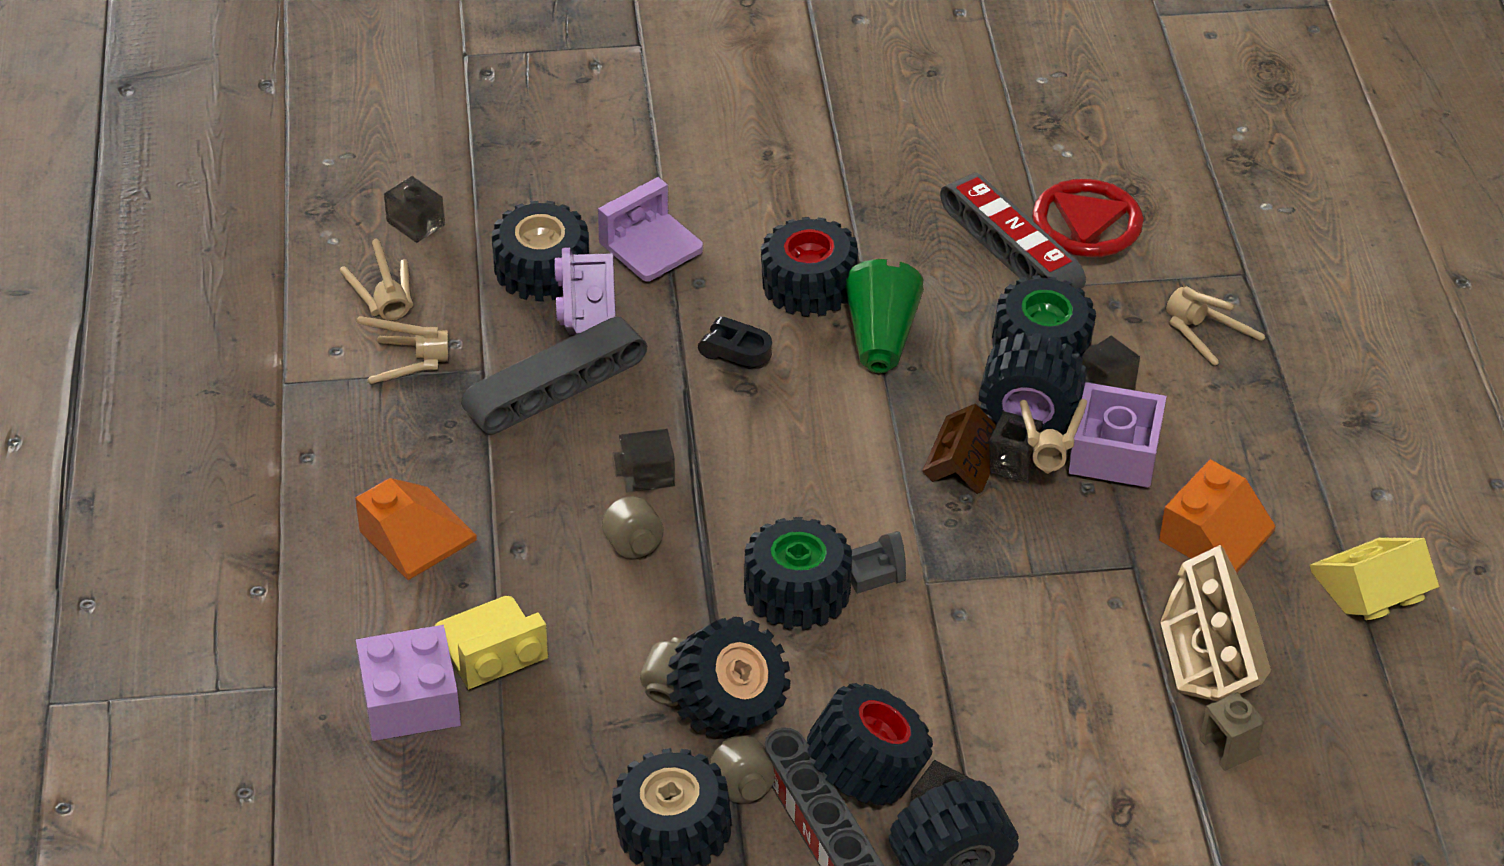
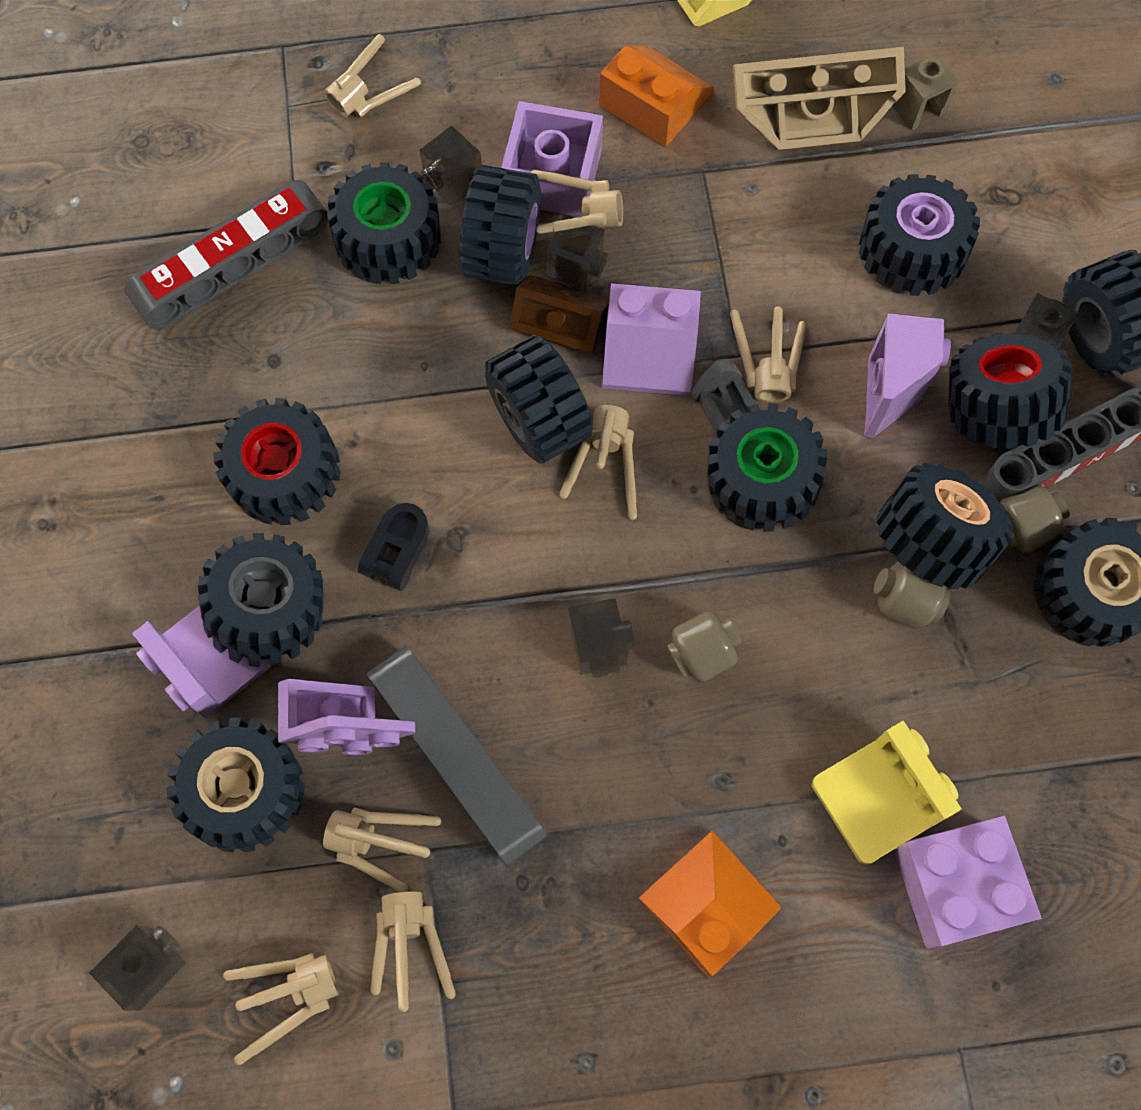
camera: 90 degrees left, 25 degrees up
(495, 320) = (352, 835): none -> tan plant
(686, 254) = (261, 599): none -> black wheel
(839, 474) = (608, 434): none -> tan plant
(857, 407) = (538, 399): none -> black wheel
(882, 310) = (371, 382): green cone -> none
(887, 656) = (902, 367): none -> lavender slope
(896, 590) = (772, 379): none -> tan plant
(933, 504) = (651, 339): none -> lavender slope
(1052, 706) = (918, 234): none -> black wheel
(1089, 216) = (208, 172): red piece -> none

